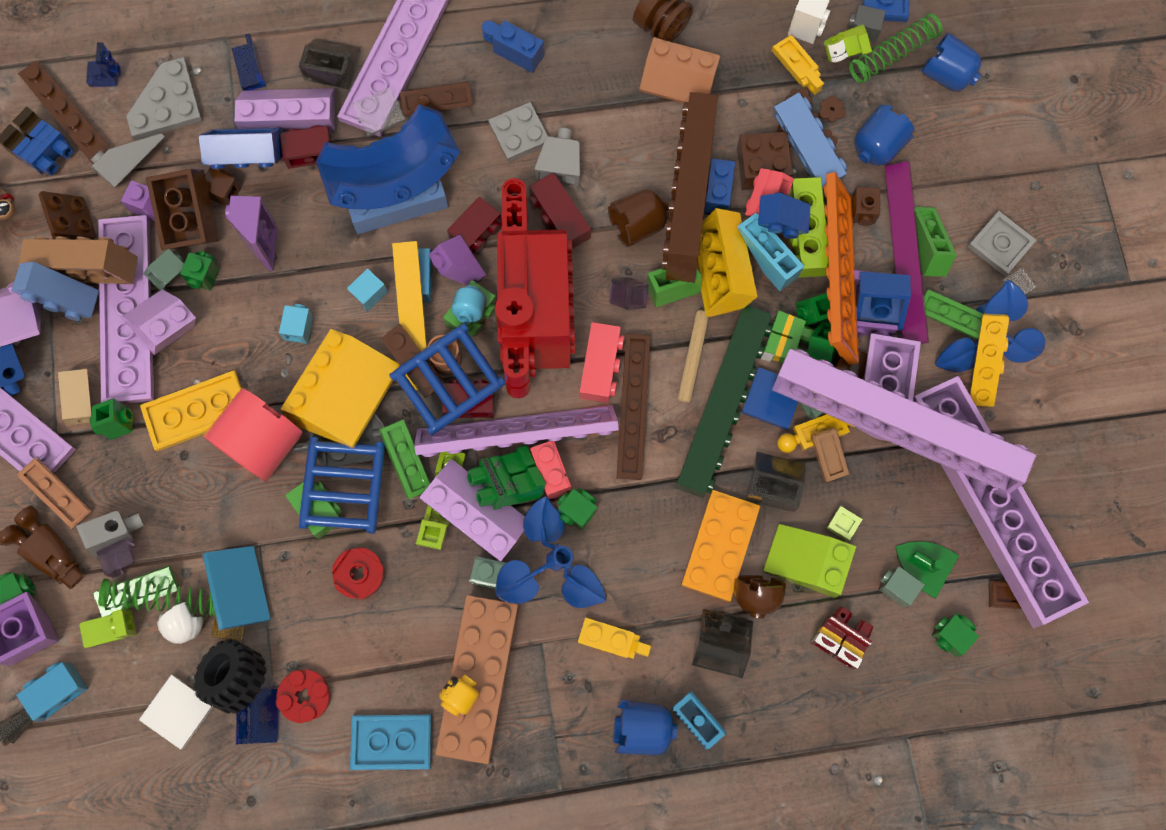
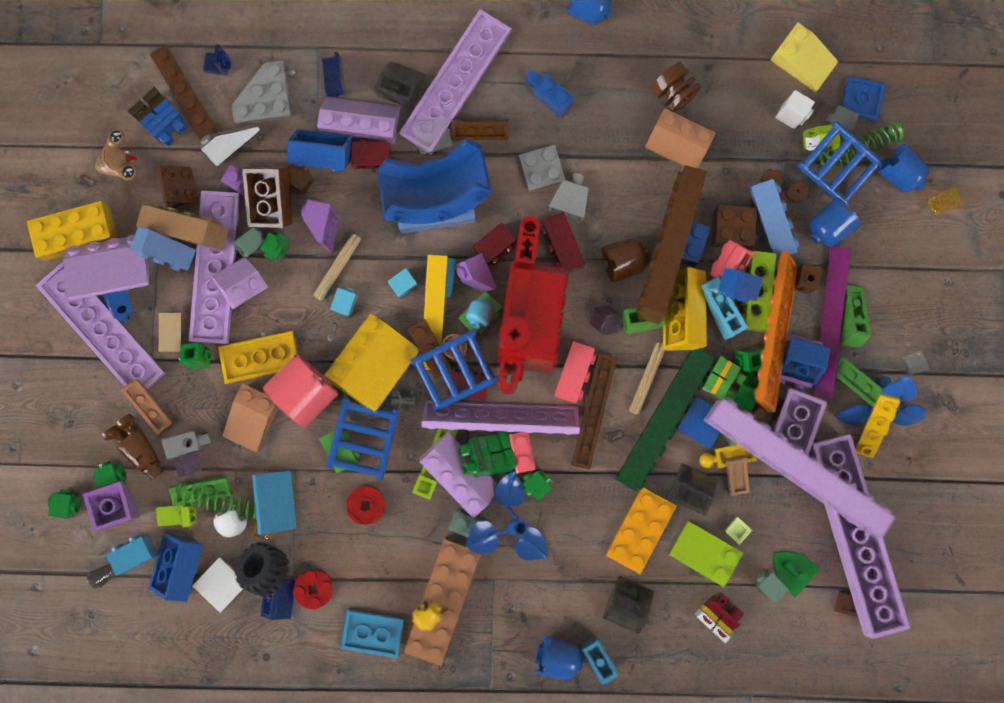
camera: 15 degrees right, 10 degrees up
(113, 697) = (175, 567): none -> blue slope
(192, 485) = (250, 417): none -> nougat slope
(281, 285) = (337, 267): none -> tan axle
(404, 459) = (412, 425): bright green plate -> none
(612, 639) = (546, 587): yellow hinge -> none
(759, 595) = (662, 574): reddish brown cylinder -> none
(798, 64) = (778, 146): yellow hinge -> none
(880, 37) = (850, 140): none -> blue bar
(955, 634) = (804, 629): green brick -> none
(1001, 243) = (910, 327): light grey plate -> none
(1009, 94) = (945, 201): none -> clear yellow brick

